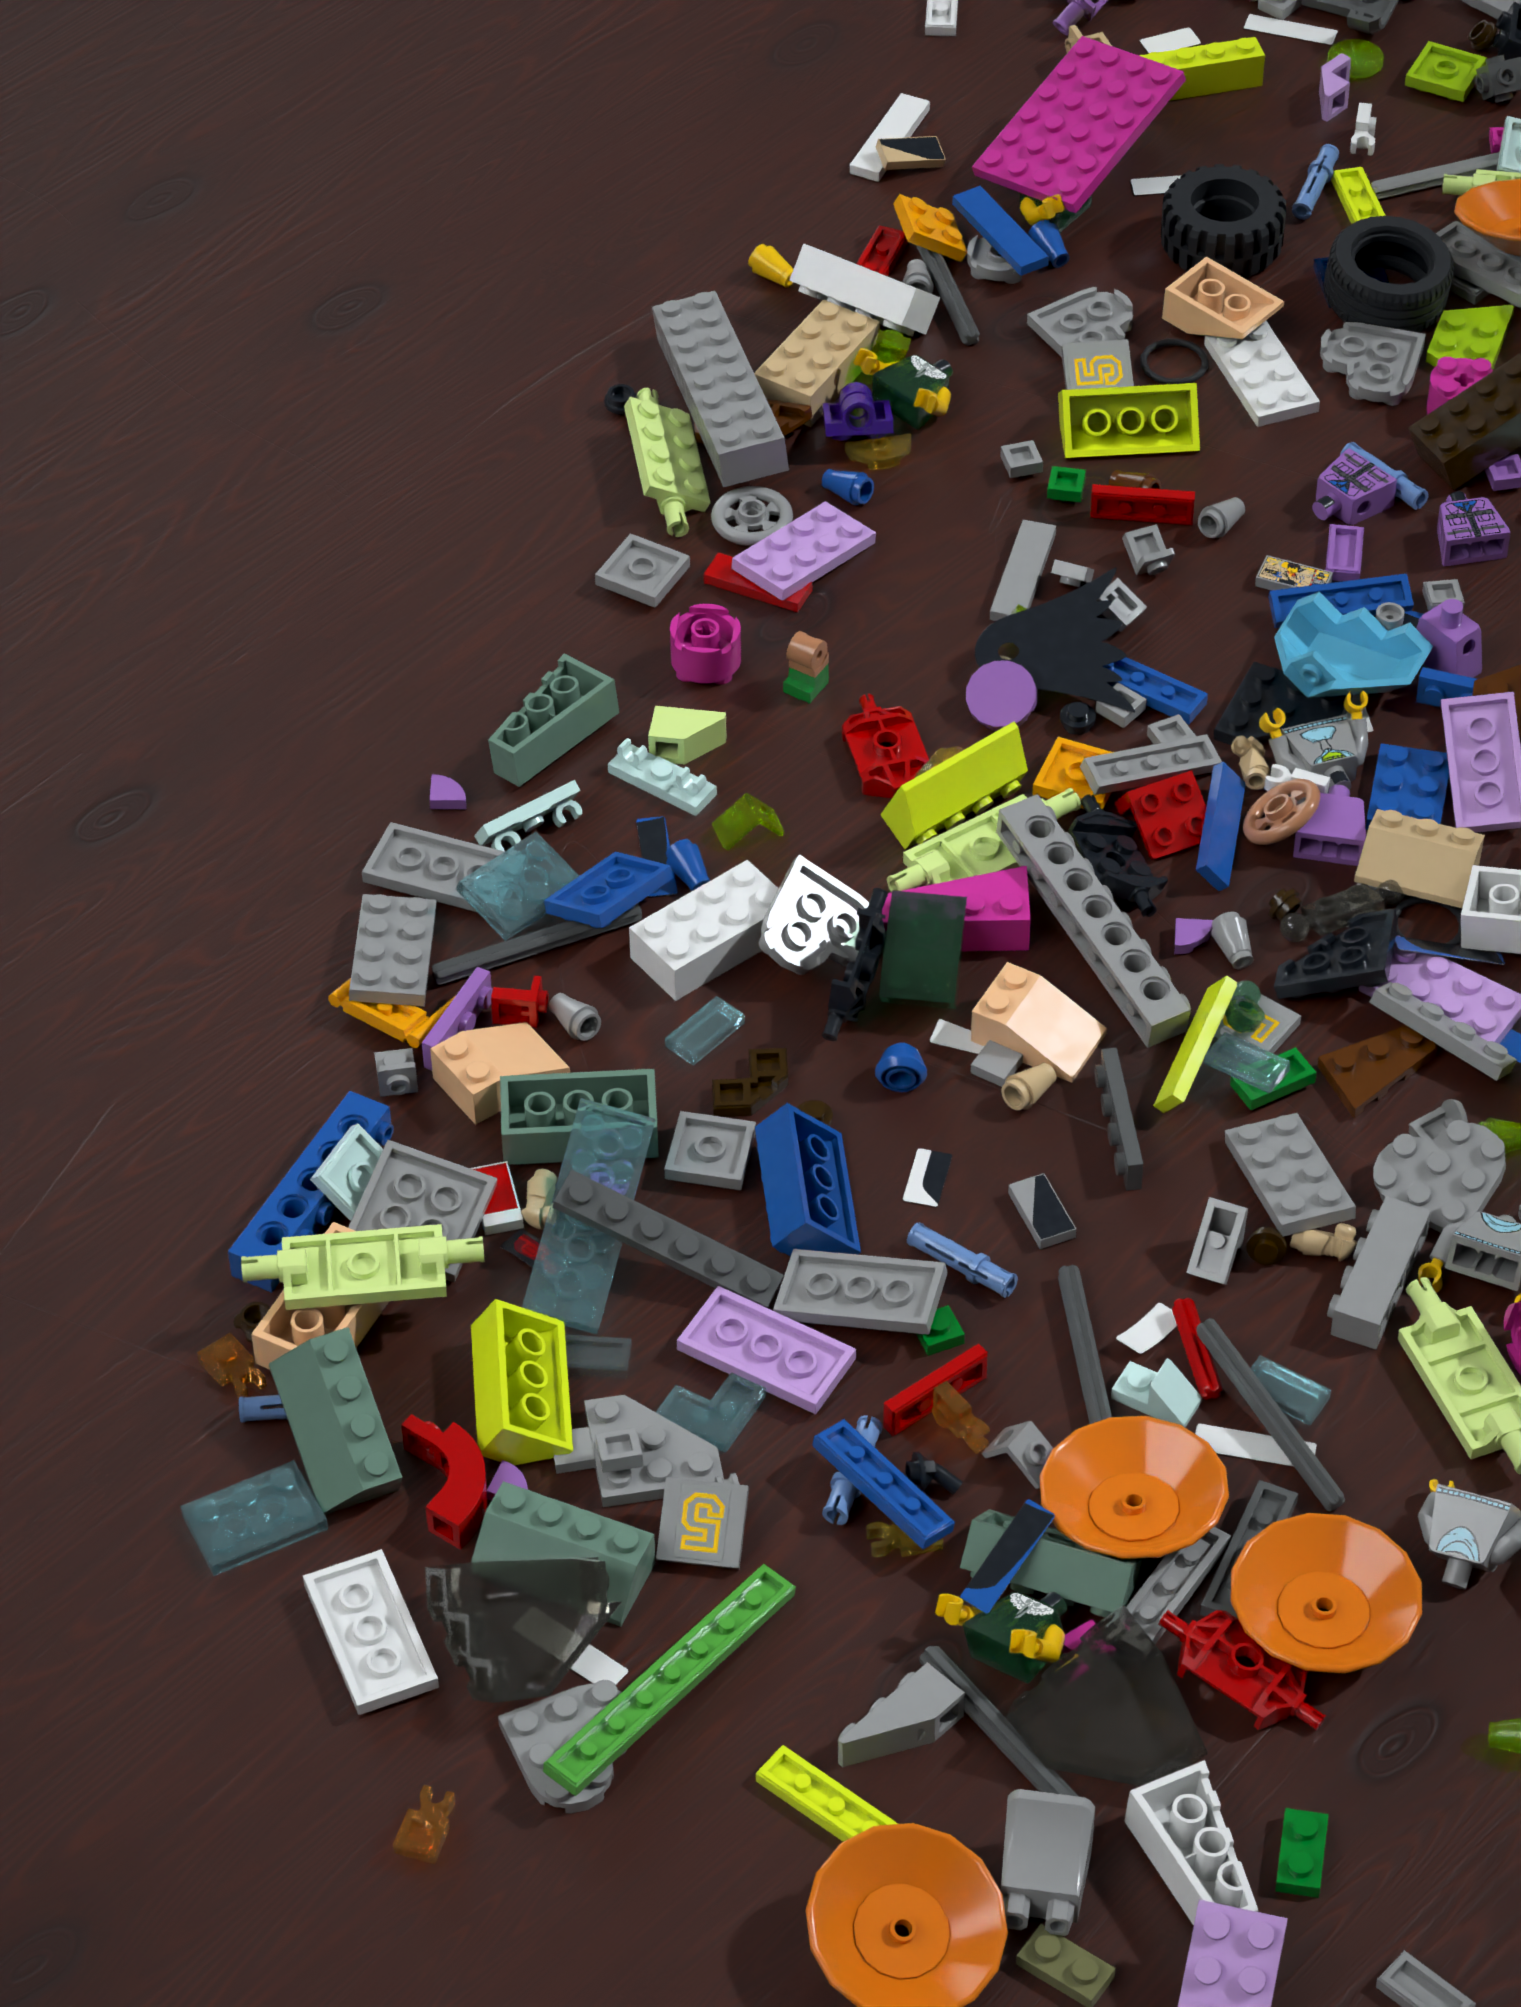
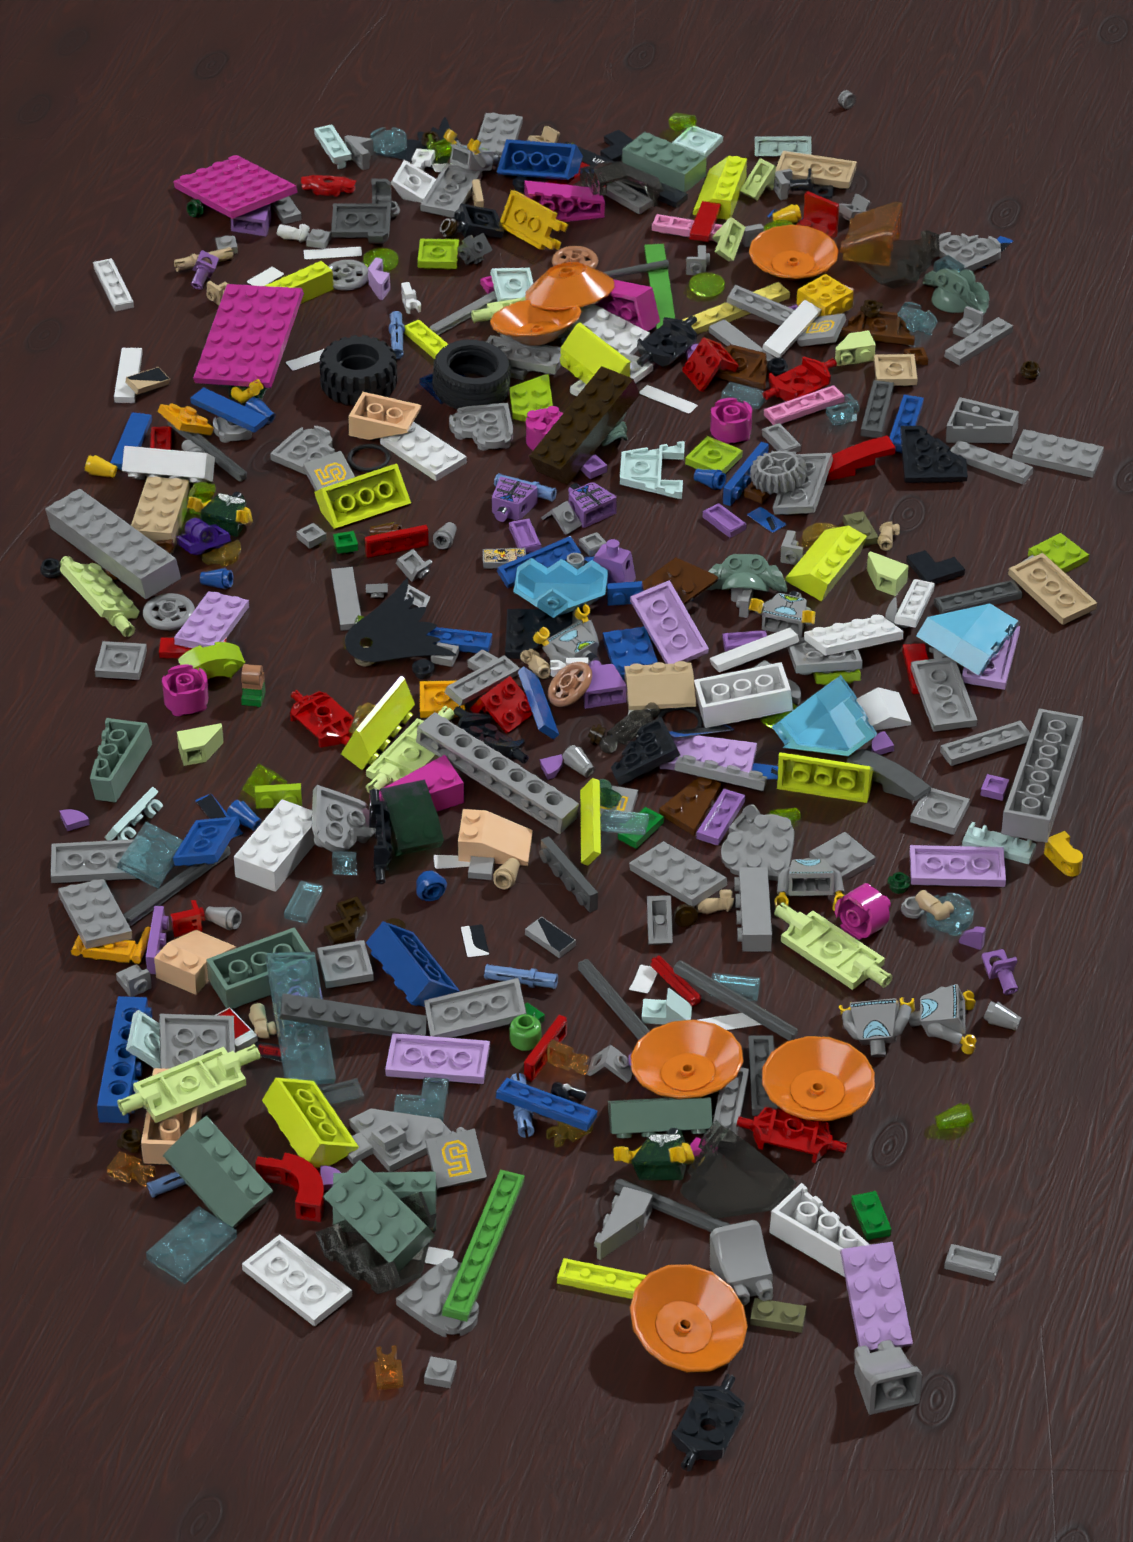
camera: 25 degrees left, 5 degrees down
(501, 1861) = (440, 1372): none -> light grey plate
(525, 1577) = (379, 1215): none -> sand green brick
(661, 778) = (198, 772): light aqua plate -> none
(765, 853) = (270, 795): none -> lime plate
(771, 610) = (215, 660): none -> lime brick
(794, 989) = (344, 863): none -> clear light blue plate
(850, 228) = (132, 436): none -> blue tile
(915, 1353) = (525, 1032): none -> bright green head
(1001, 694) = (374, 668): medium lavender tile -> none
(1007, 1556) = (639, 1116): black sticker -> none
(1292, 68) = (347, 274): none -> light grey plate
(1407, 1101) = (720, 817): none -> medium lavender plate
(1418, 541) = (565, 517): none -> light grey bracket

